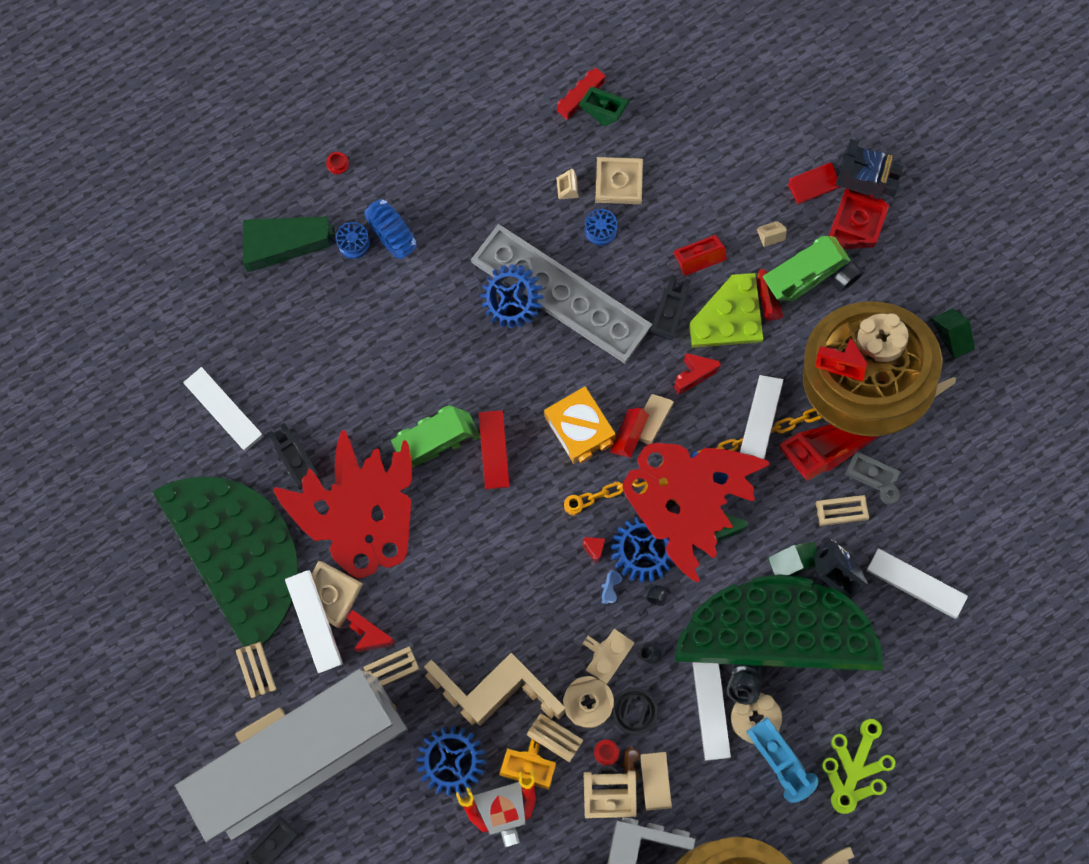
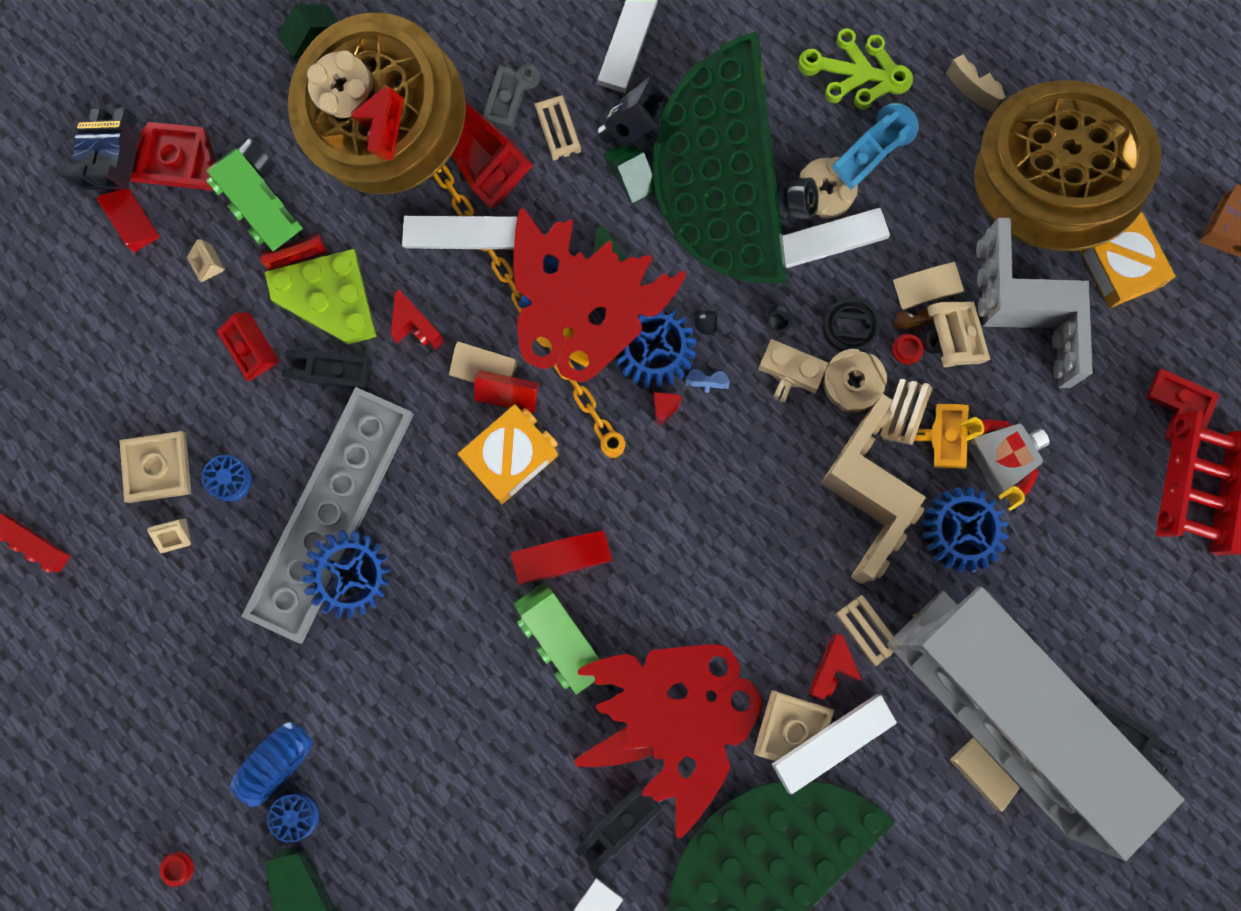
camera: 105 degrees left, 5 degrees up
(262, 690) = (932, 793): tan tile -> none
(603, 105) = (46, 503): dark green slope -> none

